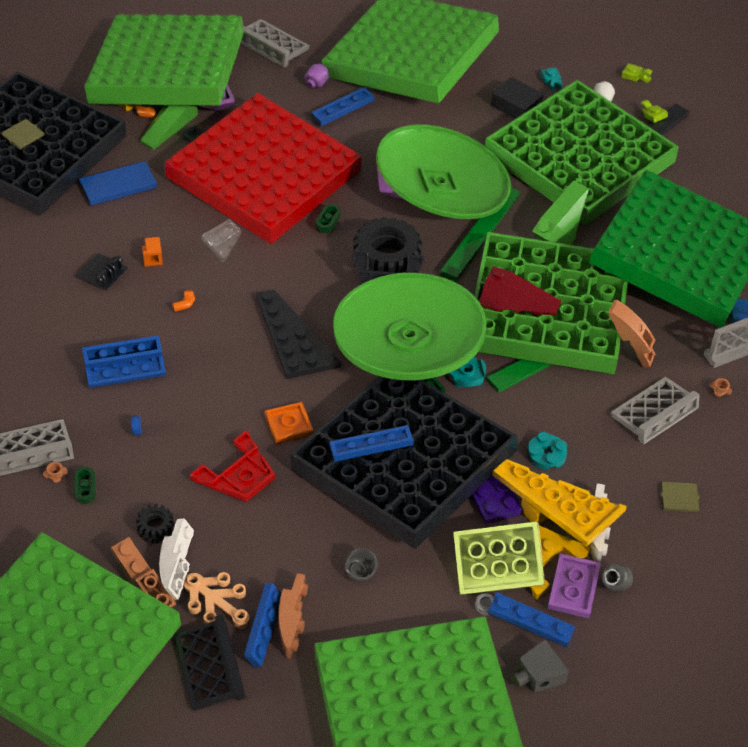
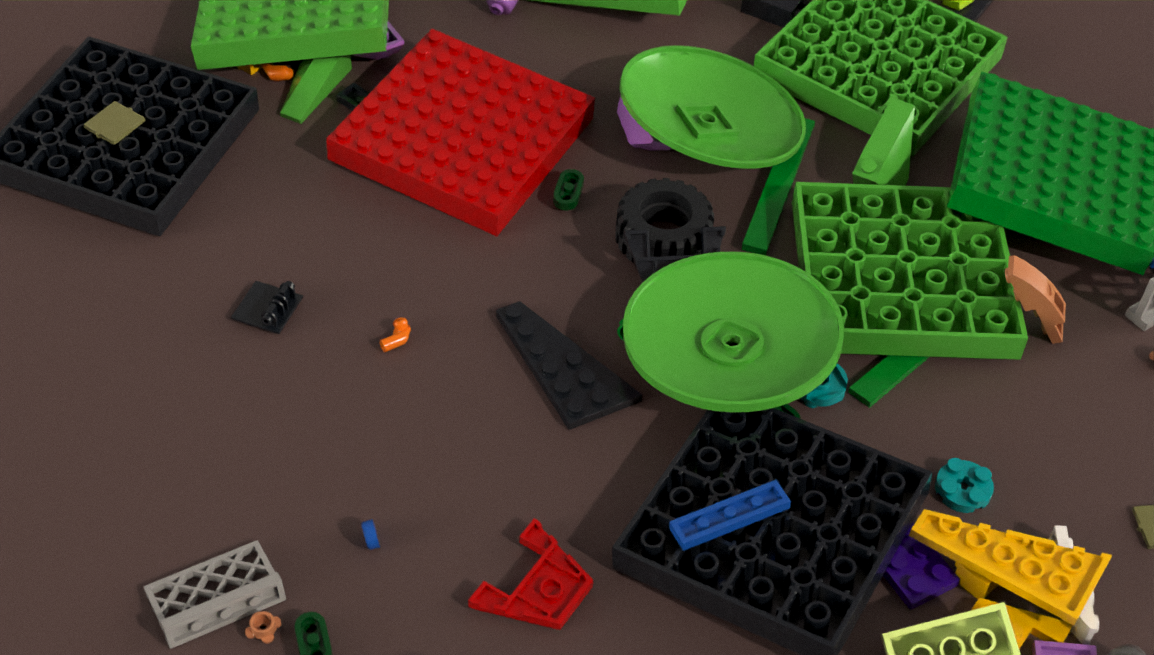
camera: 10 degrees left, 0 degrees up
(118, 183) = (262, 176): blue tile -> none
(123, 361) = (330, 439): blue brick -> none
(152, 252) = (334, 269): orange brick -> none
(222, 238) = (428, 237): clear wing -> none
(289, 422) = (590, 496): orange tile -> none
(342, 106) = (547, 35): blue plate -> none
(510, 292) = (858, 263): dark red wedge -> none
(666, 416) = (1107, 416): light grey fence -> none

